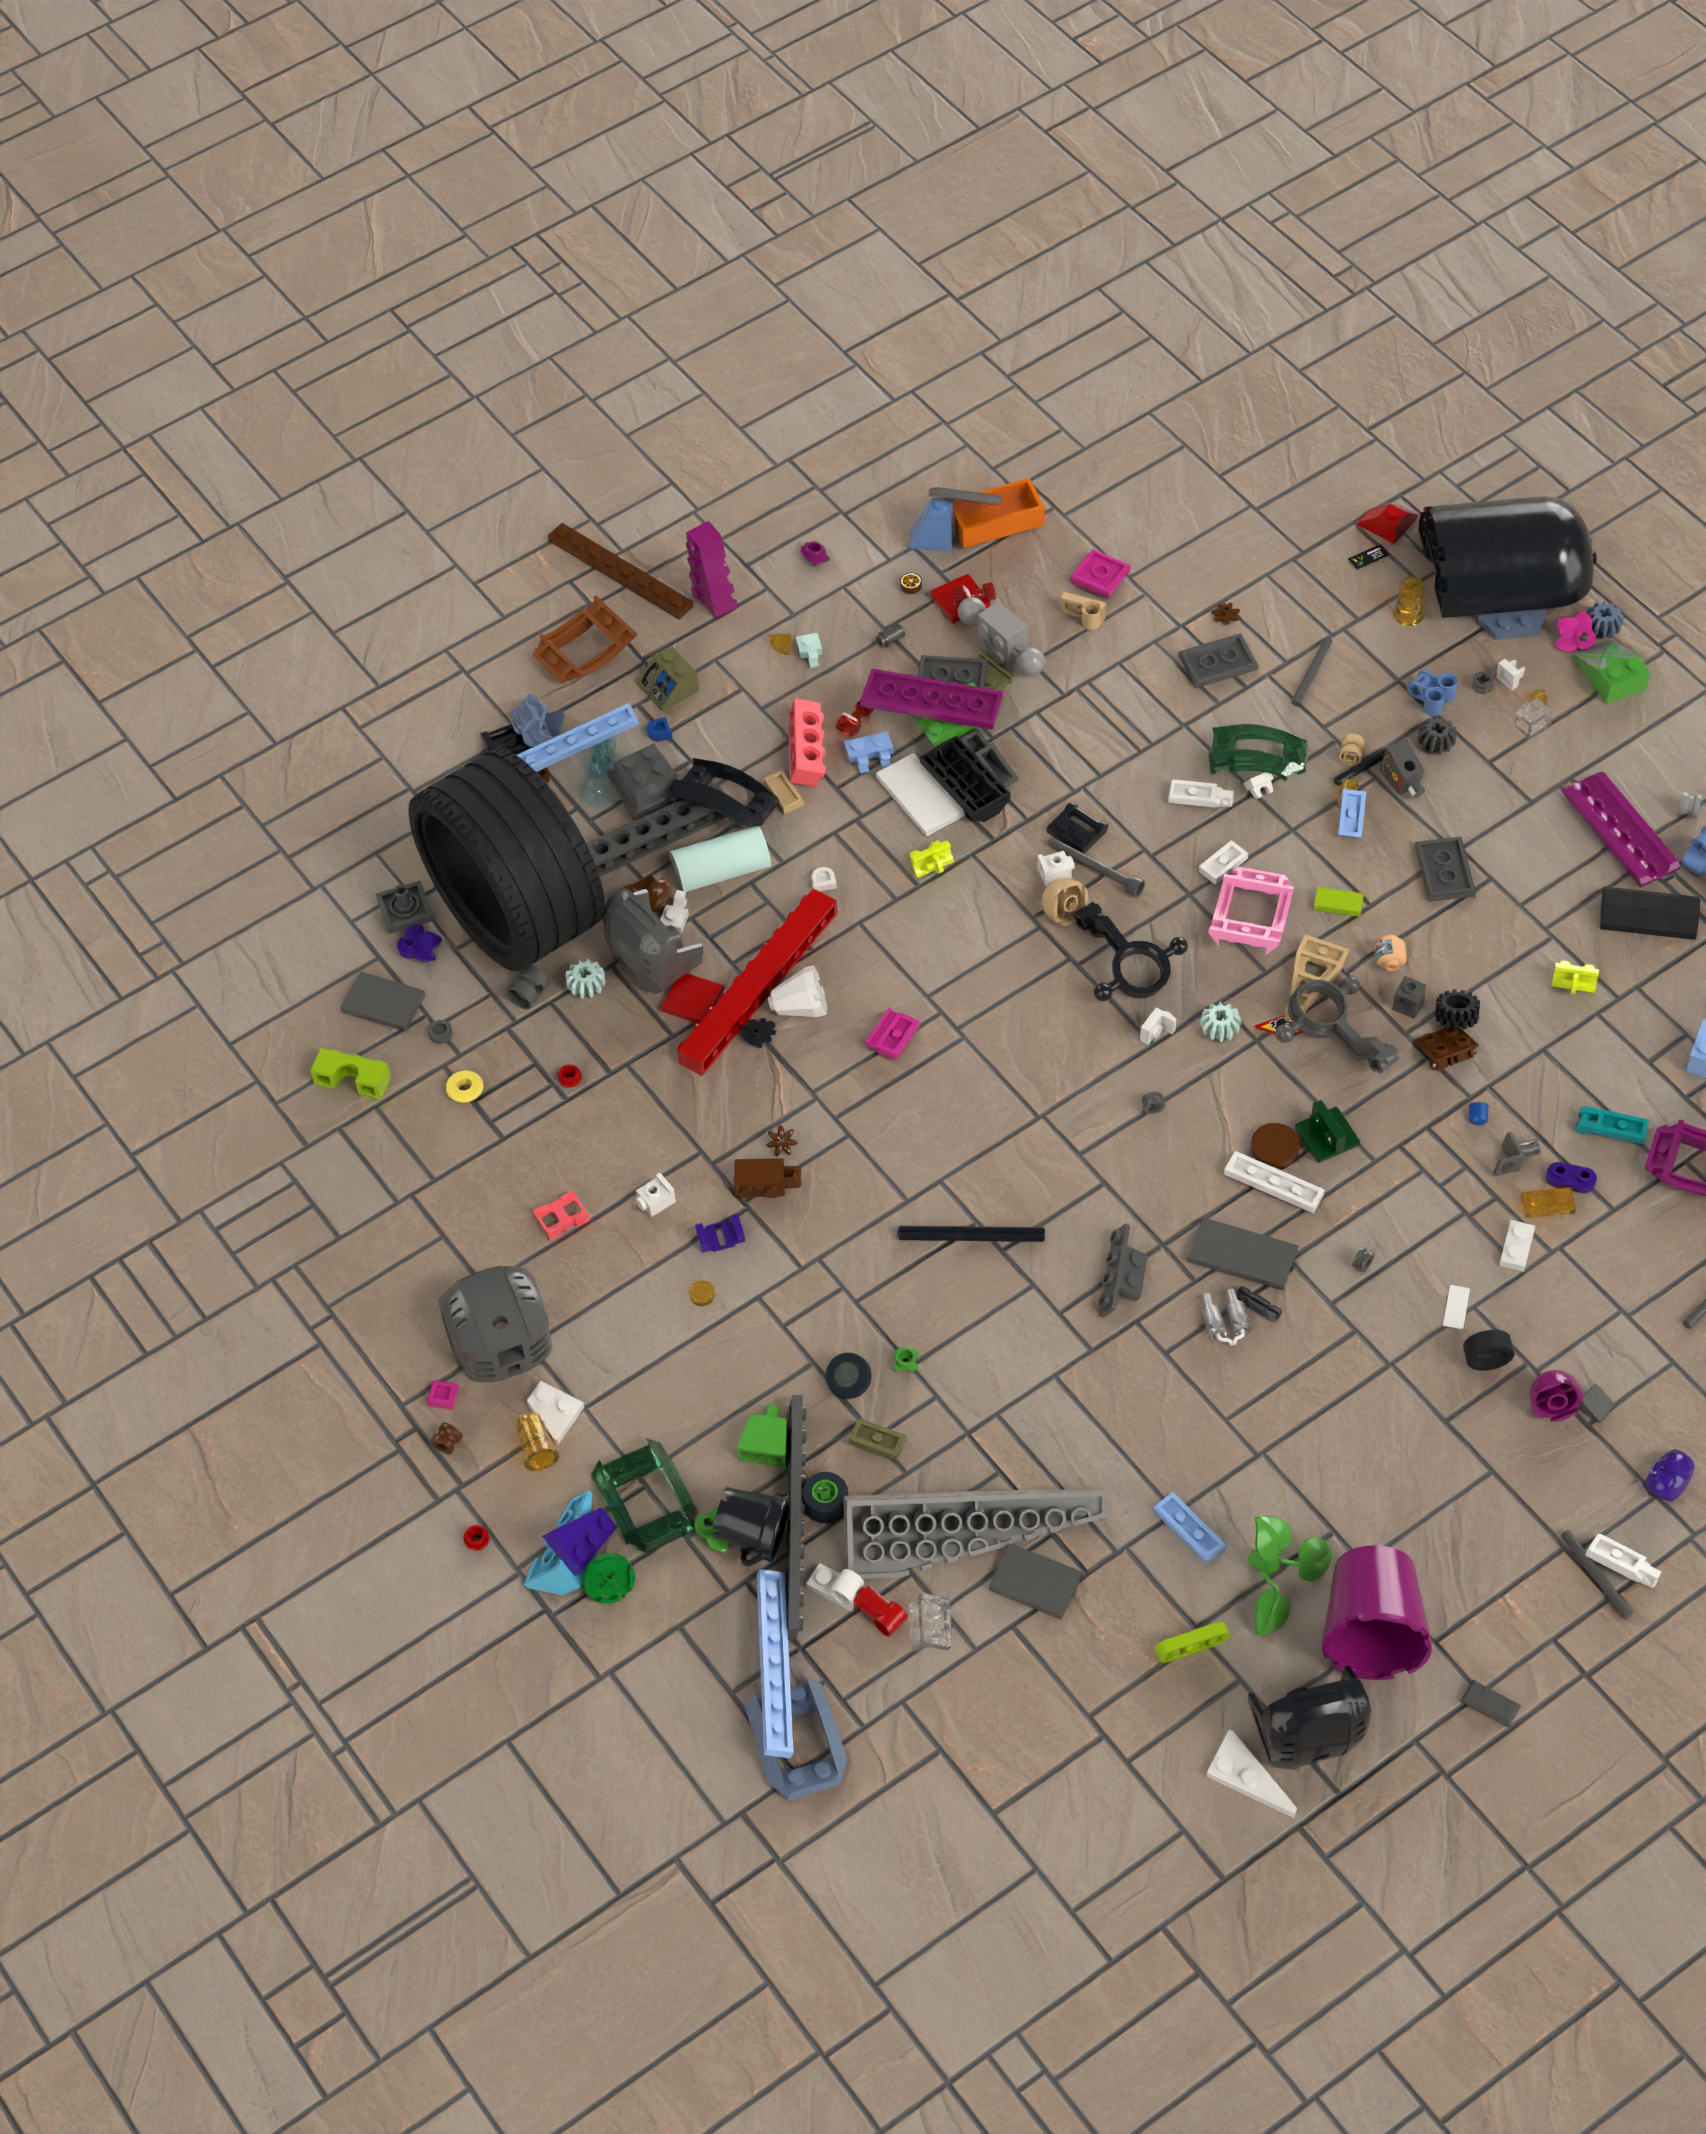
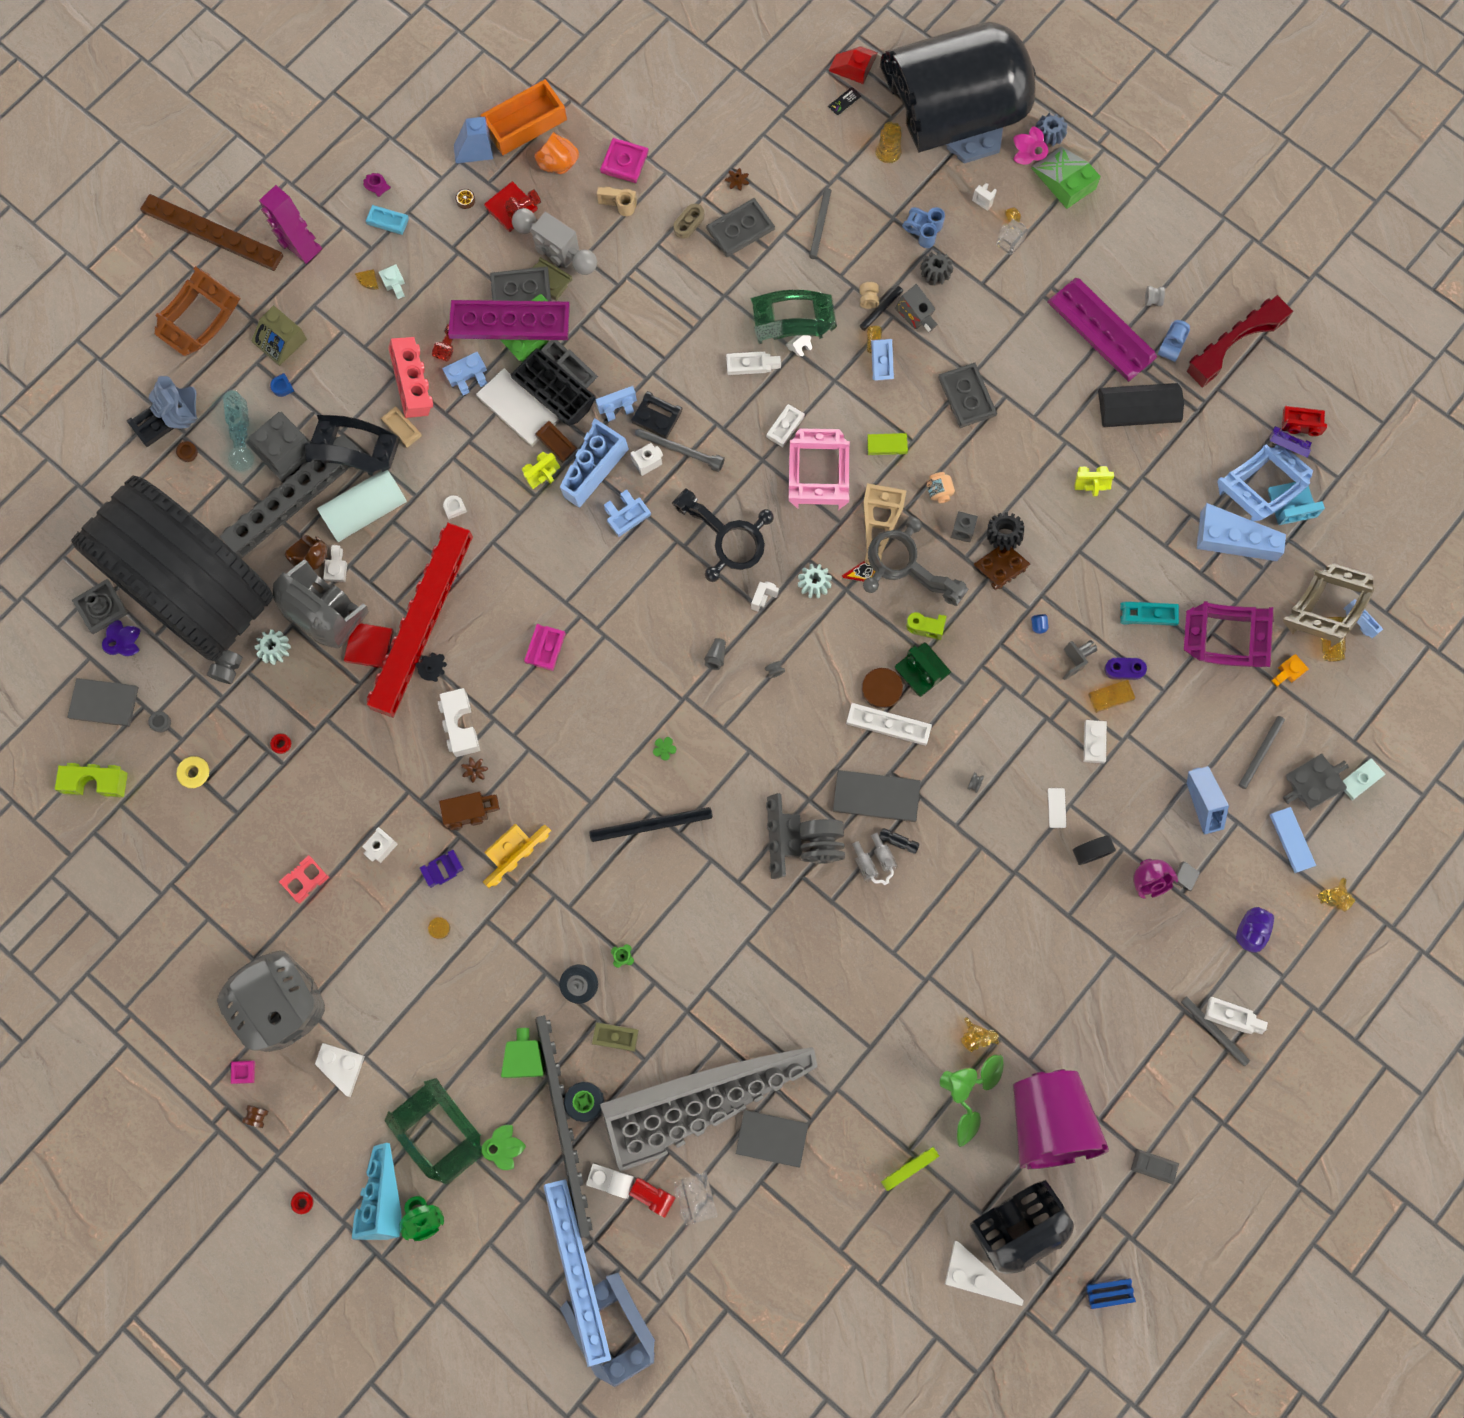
camera: 15 degrees left, 20 degrees up
(536, 1444) = (331, 1104): clear yellow plant -> none
(580, 738) = (194, 429): light blue plate -> none
(581, 1539) = (390, 1196): dark purple wing -> none
(752, 1523) = (530, 1148): black piece -> none
(775, 1106) = (461, 740): none -> white arch
(800, 995) = (459, 628): white cone -> none
(802, 1225) = (510, 849): none -> yellow bracket
(818, 588) = (387, 219): none -> medium azure plate
(889, 636) = (459, 255): dark grey pin -> none
(955, 833) = (555, 441): none -> reddish brown tile
(966, 496) = (494, 111): dark grey tile -> none
(993, 859) = (593, 462): none -> light blue wedge
(1005, 1161) = (665, 748): none -> bright green plant
(1018, 922) = (629, 516): none -> light blue plate
(1024, 554) = (557, 155): none -> orange helmet
(1033, 800) = (610, 402): none -> light blue plate
(1064, 898) = (661, 490): tan cylinder -> none
(1087, 1076) = (715, 657): none -> dark grey cone
(1157, 645) = (688, 222): none -> dark tan plate
(1166, 1280) = (822, 838): none -> dark grey wheel
(1189, 1528) = (885, 1061): light blue tile -> none
(1306, 1520) = (978, 1036): none -> clear yellow animal
(1342, 1090) = (926, 626): none -> lime leg
(1384, 1814) = (1131, 1299): none -> blue tile
(1483, 688) = (968, 206): dark grey bush -> none
(1639, 1327) = (1207, 800): none -> medium blue slope

